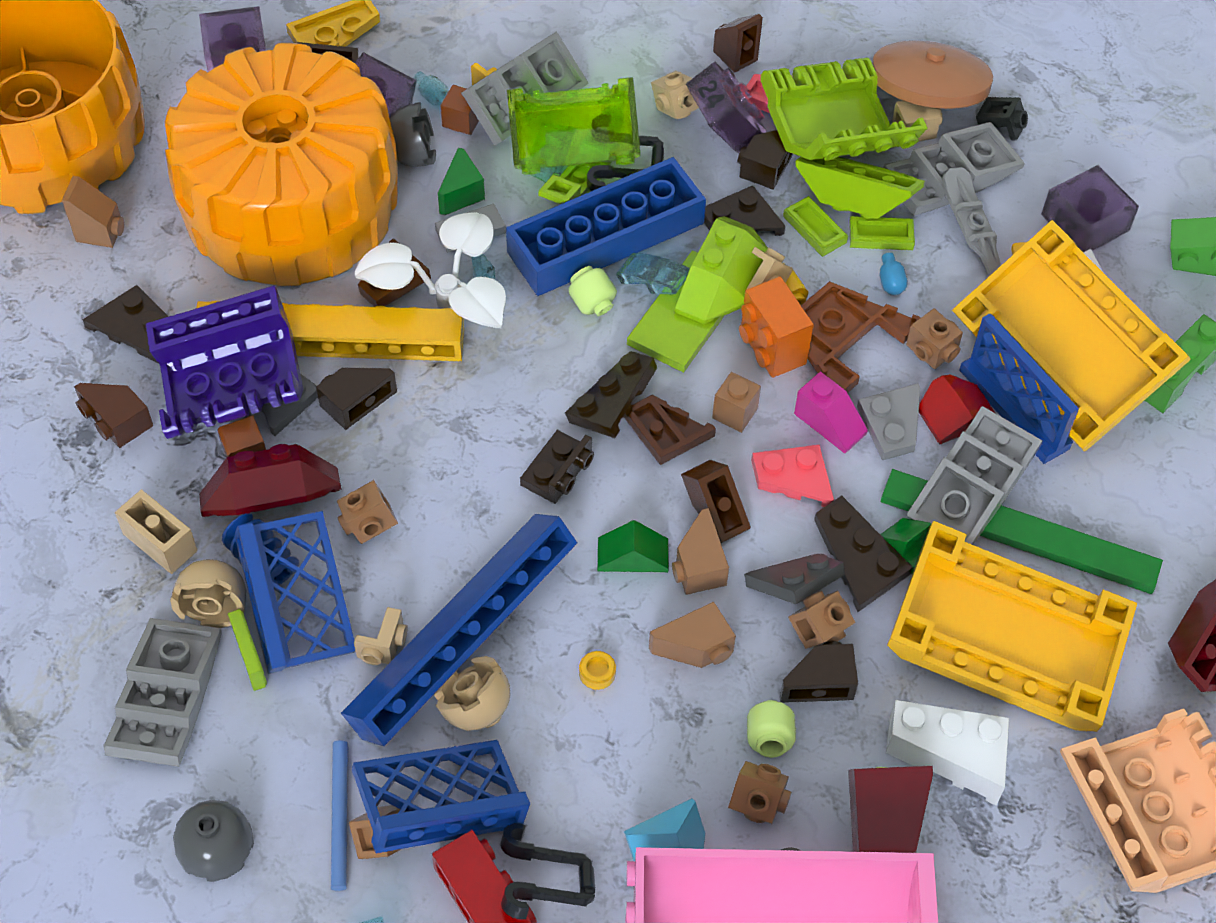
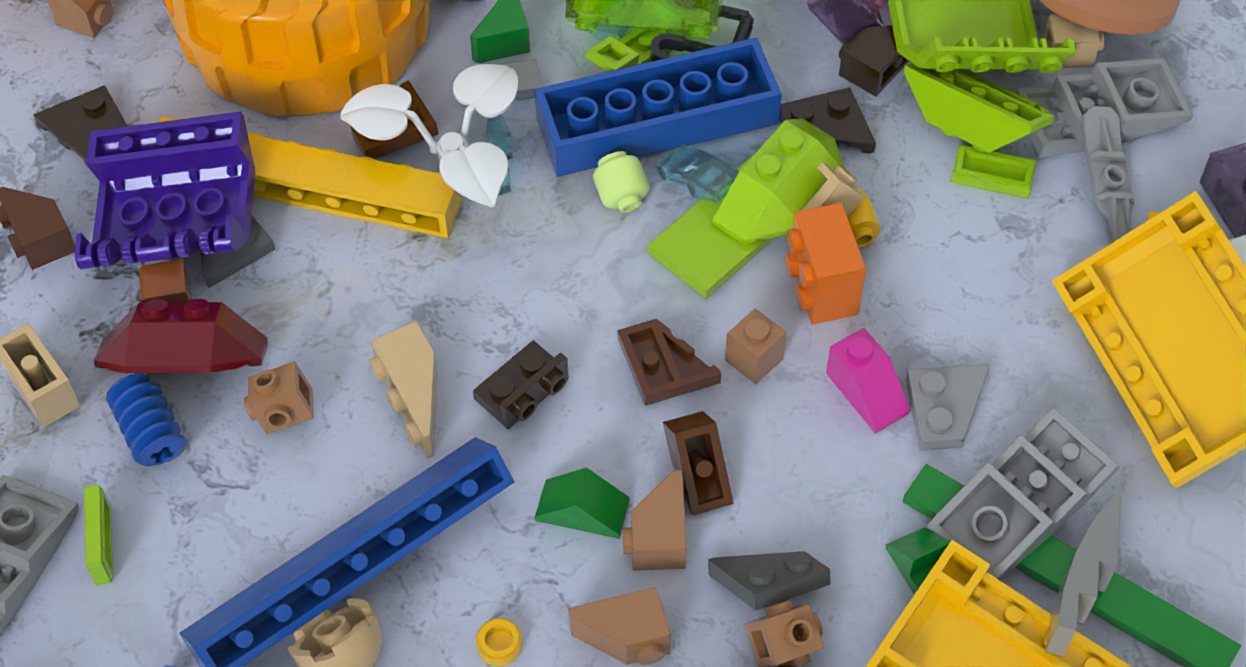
camera: 15 degrees right, 0 degrees up
(208, 593) = (71, 457): tan cylinder -> none
(264, 600) = (128, 475): blue fence -> none
(355, 393) = (311, 254): dark brown slope -> none
(391, 635) = (264, 552): tan bracket -> none
(464, 472) = (411, 374): none -> tan slope
(612, 395) = (607, 311): dark brown wing -> none
(793, 473) = (804, 446): coral wing -> none
(815, 226) = (914, 149): lime tile -> none
(840, 321) = (910, 267): dark orange wing -> none
(868, 559) = (862, 564): dark brown wing -> none
(892, 275) = (992, 225): dark azure cylinder -> none
(934, 339) = (1020, 312): medium nougat brick -> none
(951, 406) = (1021, 398): red slope -> none
(1004, 113) = (1185, 50): pearl dark grey bracket -> none
(1006, 392) = (1109, 397): blue fence -> none
(1038, 530) = (1086, 575): none -> light grey slope

